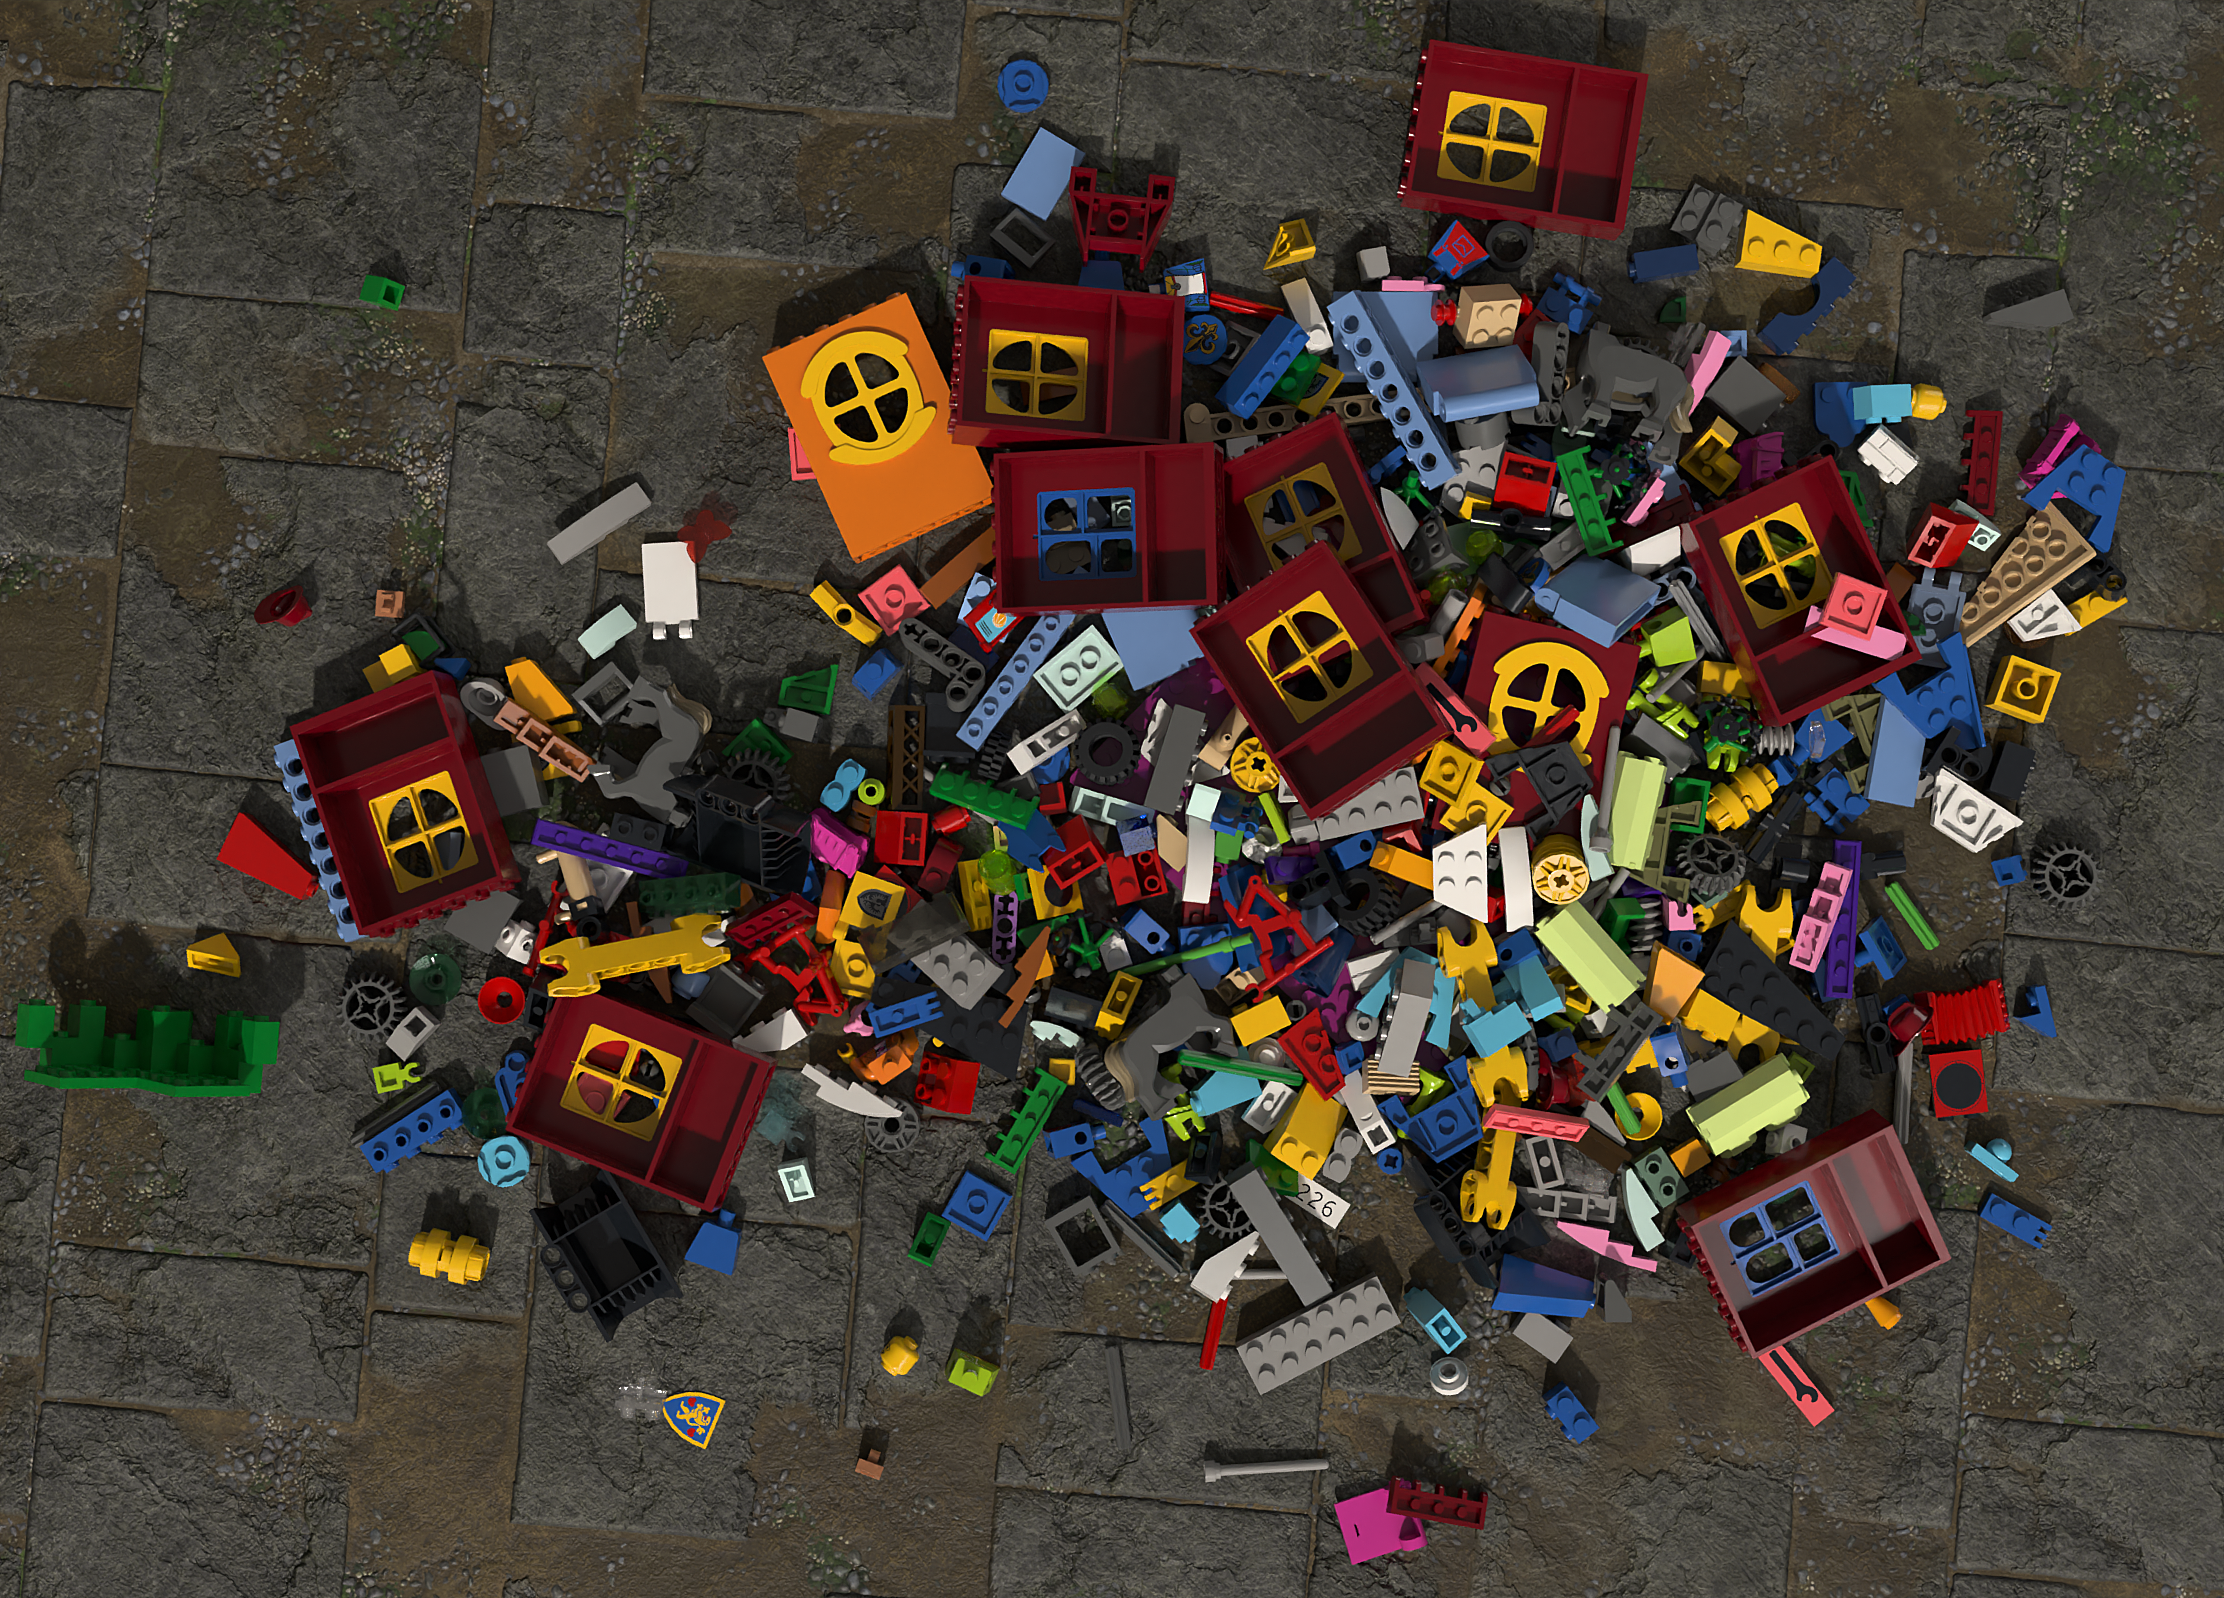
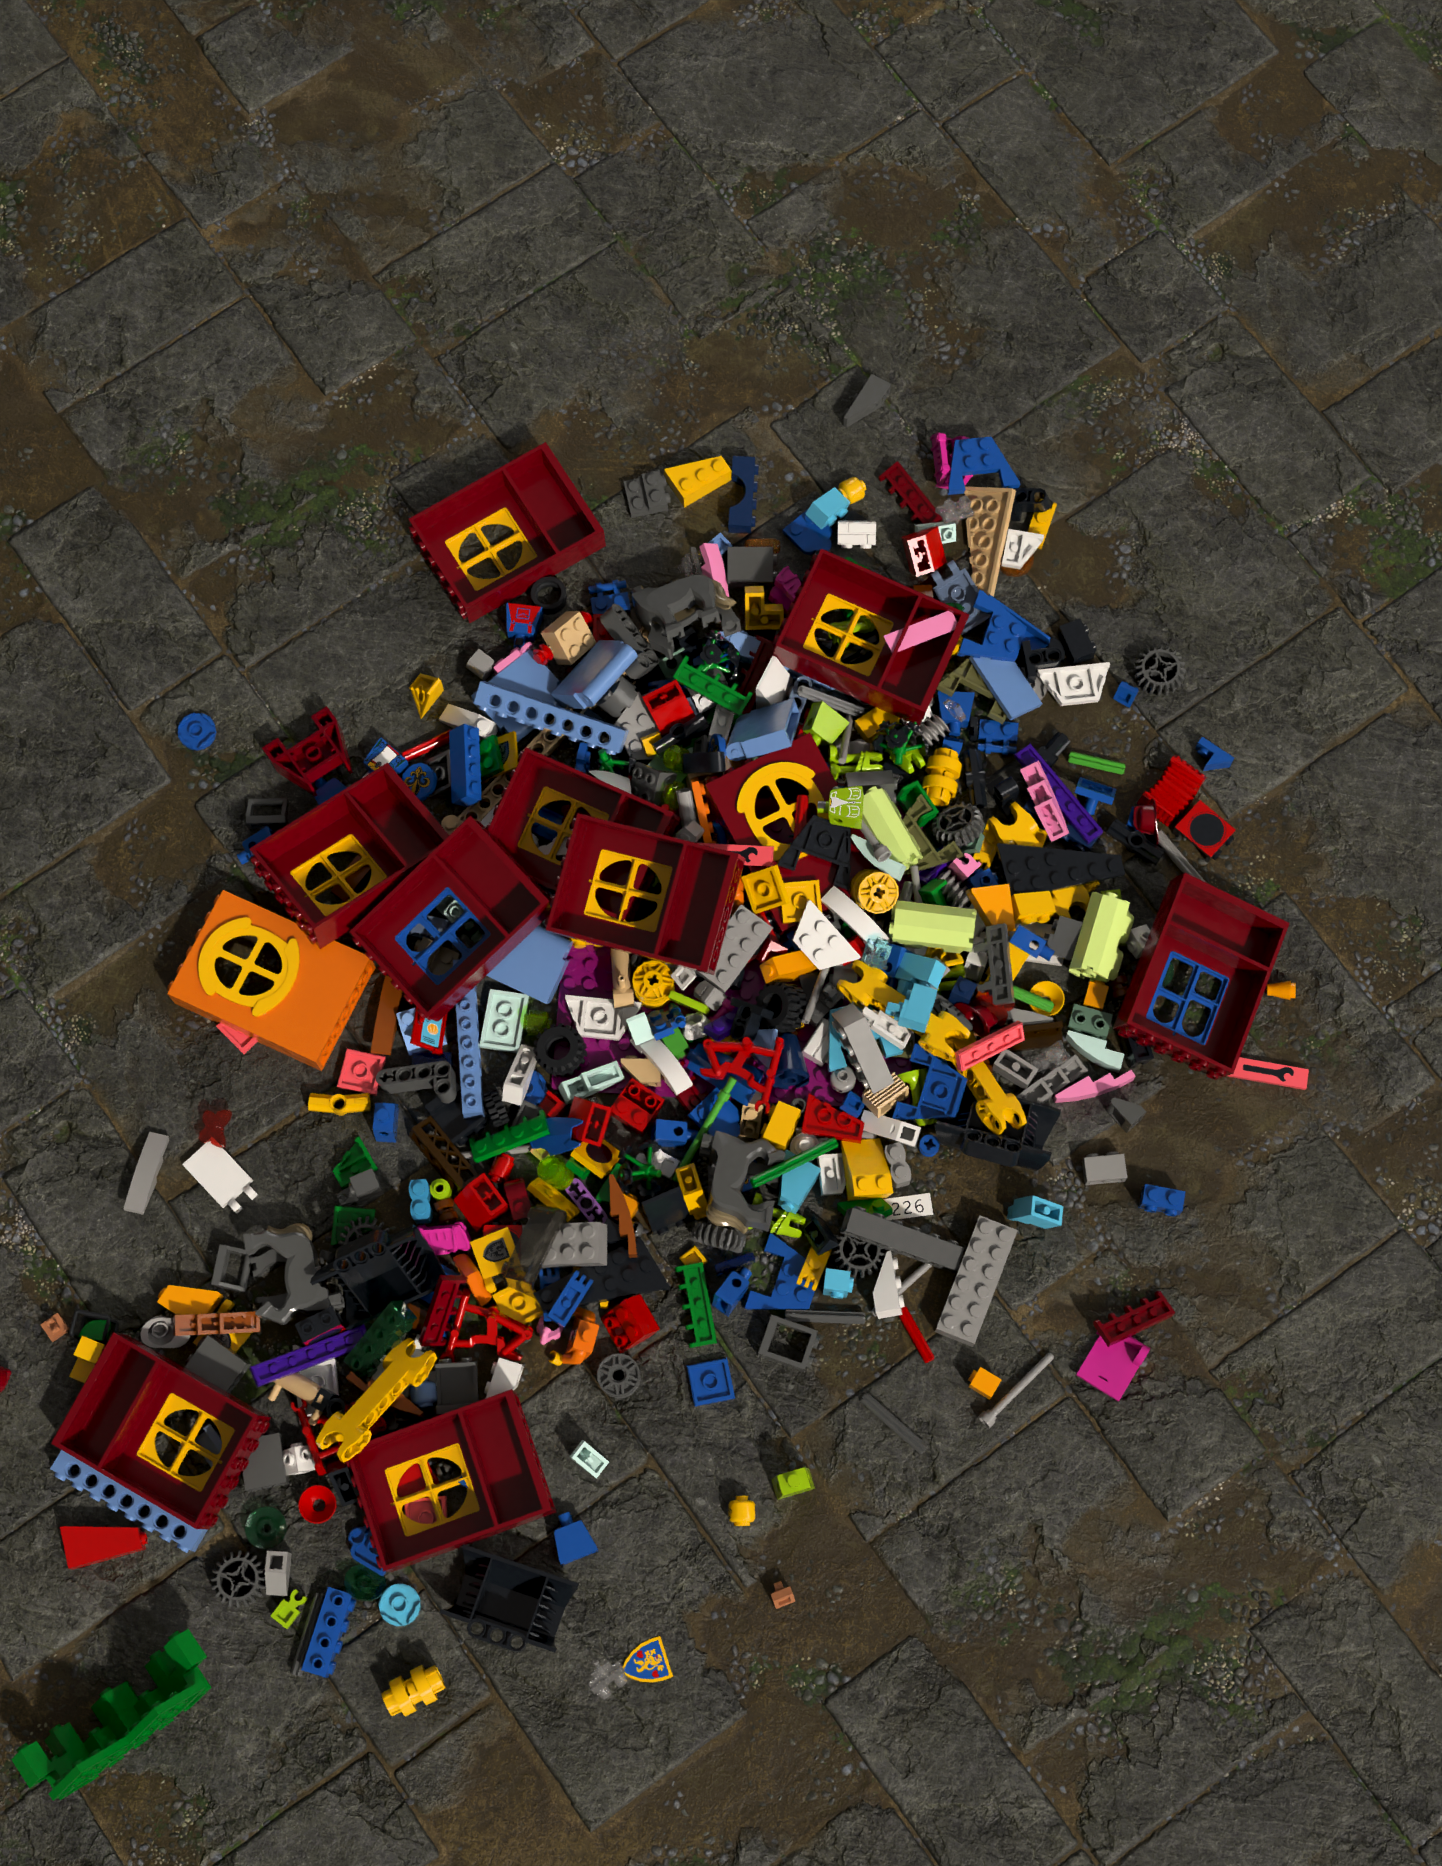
camera: 40 degrees left, 15 degrees down
(214, 955) = (114, 1633): yellow slope -> none
(453, 666) = (126, 1327): blue slope -> none
(606, 631) = (202, 1232): light aqua slope -> none
(777, 1127) = (550, 1436): clear light blue brick -> none
(852, 1096) = (582, 1377): white slope -> none
(929, 1239) = (699, 1423): green slope -> none
(1042, 174) = (249, 769): medium blue tile -> none
(1048, 1029) = (662, 1241): light aqua slope -> none
(1136, 835) = (617, 1081): clear blue brick -> none
(1174, 760) = (602, 1019): dark grey brick -> none
(1237, 1437) = (984, 1382): none -> light orange brick
(1348, 853) = (750, 984): blue torso -> none
(1449, 1013) = (887, 1027): none -> white hinge
(1449, 1376) = (1074, 1239): white plate -> none
(1495, 790) = (798, 877): dark grey hinge -> none
(1506, 933) = (876, 953): none -> clear light blue brick
(1540, 1289) = (1081, 1142): blue slope -> none
(1605, 761) = (844, 807): none -> lime torso
(1638, 511) = (745, 671): bright pink hinge -> none
(1663, 263) = (643, 535): dark blue brick -> none
(1674, 311) = (672, 556): dark green tile -> none
(1852, 606) = (905, 616): coral plate -> none
(1994, 1156) = (1263, 854): medium azure tile -> none
(2013, 520) = (955, 511): none -> clear hips
(2013, 1219) = (1307, 879): blue hinge -> none
(2022, 689) = (1043, 593): yellow brick -> none

